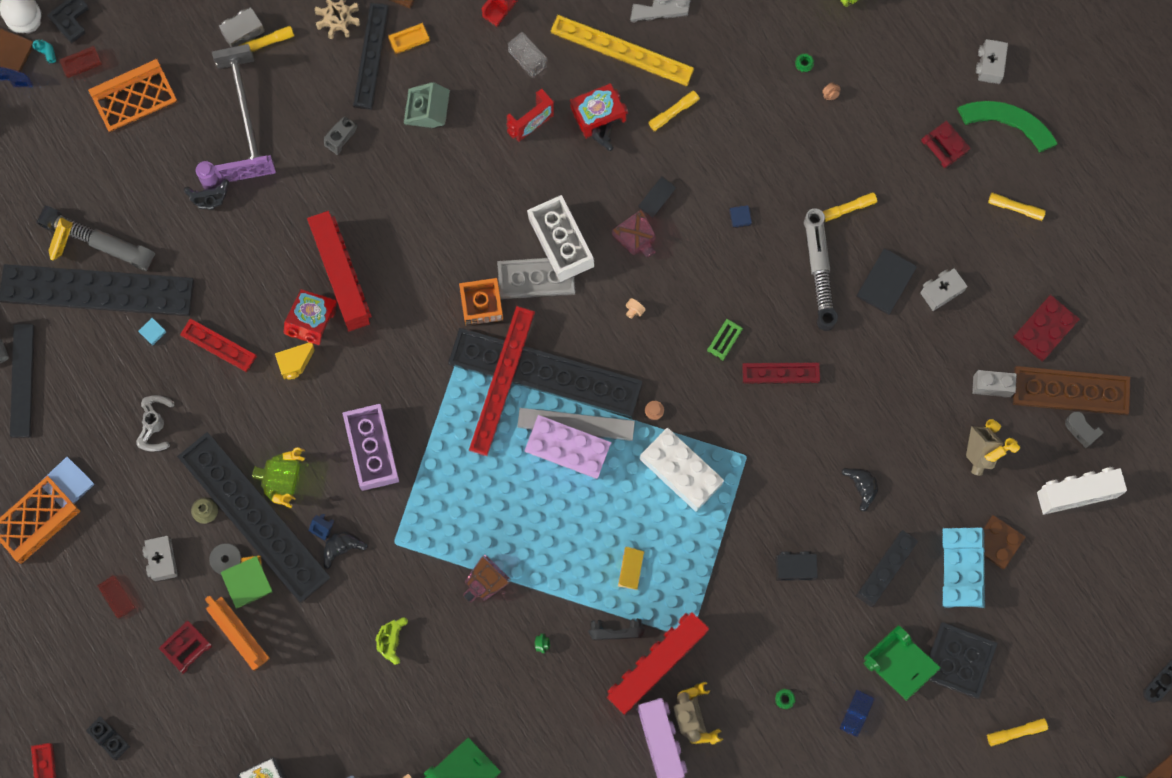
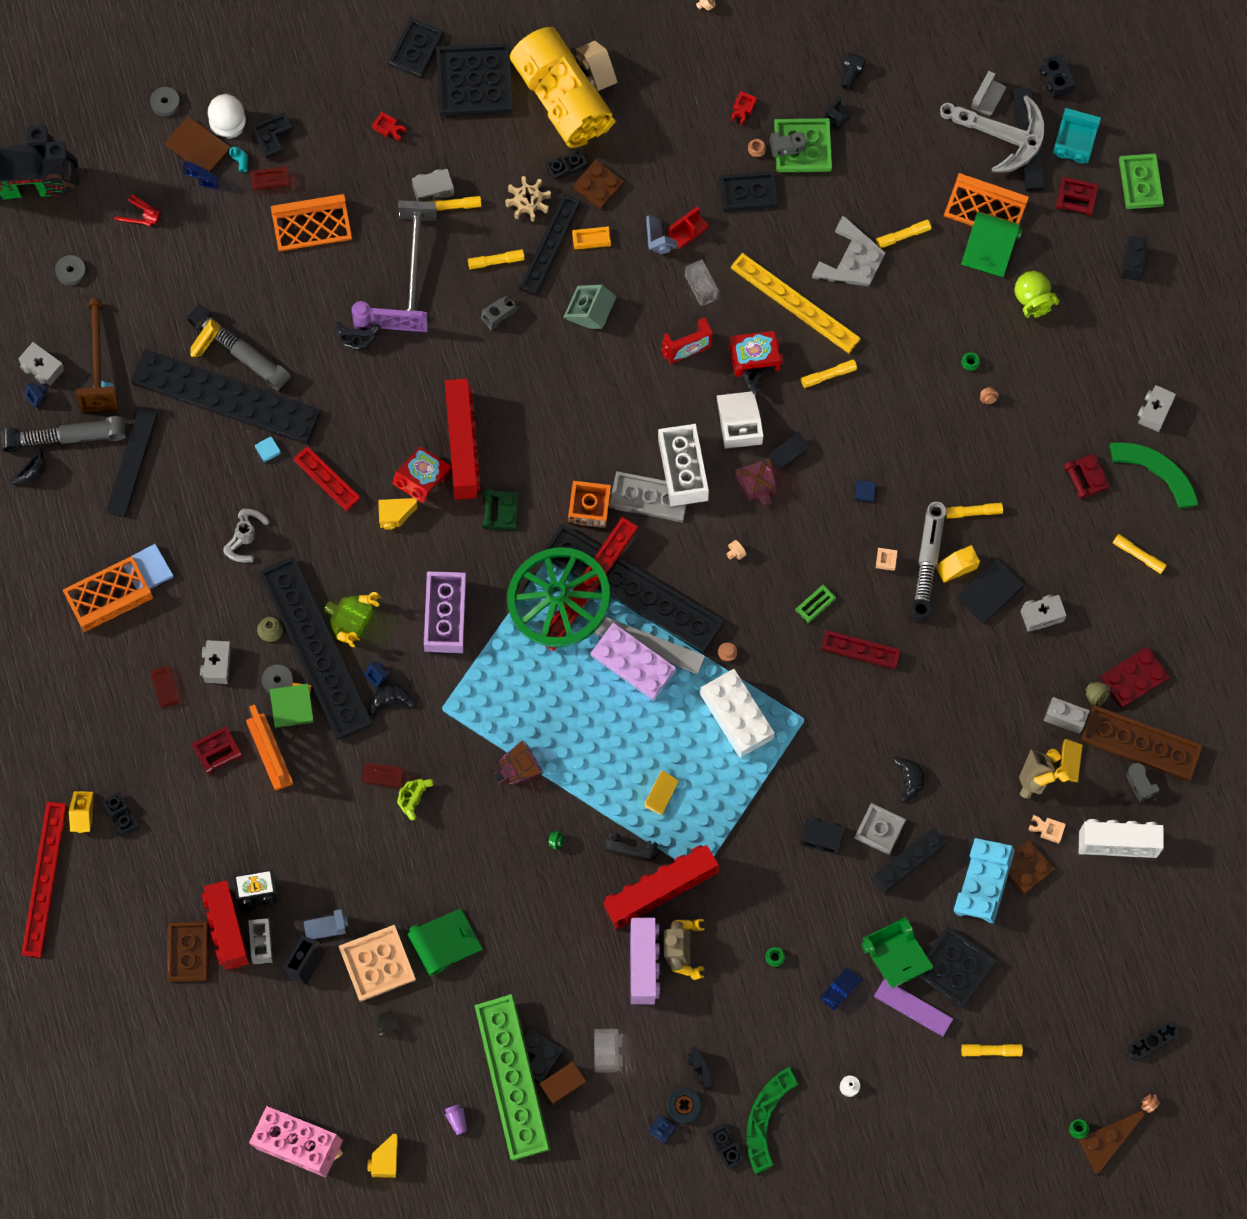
camera: 15 degrees right, 5 degrees down
(68, 747) = (81, 812): none -> yellow slope
(311, 89) = (508, 257): none -> yellow piece
(355, 626) = (382, 775): none -> clear red plate
(402, 329) = (506, 510): none -> dark green plate
(435, 386) = (554, 586): none -> green wheel
(472, 25) = (656, 240): none -> sand blue bracket
(602, 178) = (740, 420): none -> white slope
(780, 277) = (886, 559): none -> light nougat tile
(849, 264) = (958, 564): none -> yellow slope
(849, 543) = (880, 828): none -> light grey tile
(931, 711) = (913, 1008): none -> medium lavender tile
(1009, 424) = (1071, 758): none -> yellow slope
(1010, 499) = (1050, 829): none -> light nougat plate
(1017, 353) = (1097, 693): none -> olive cone

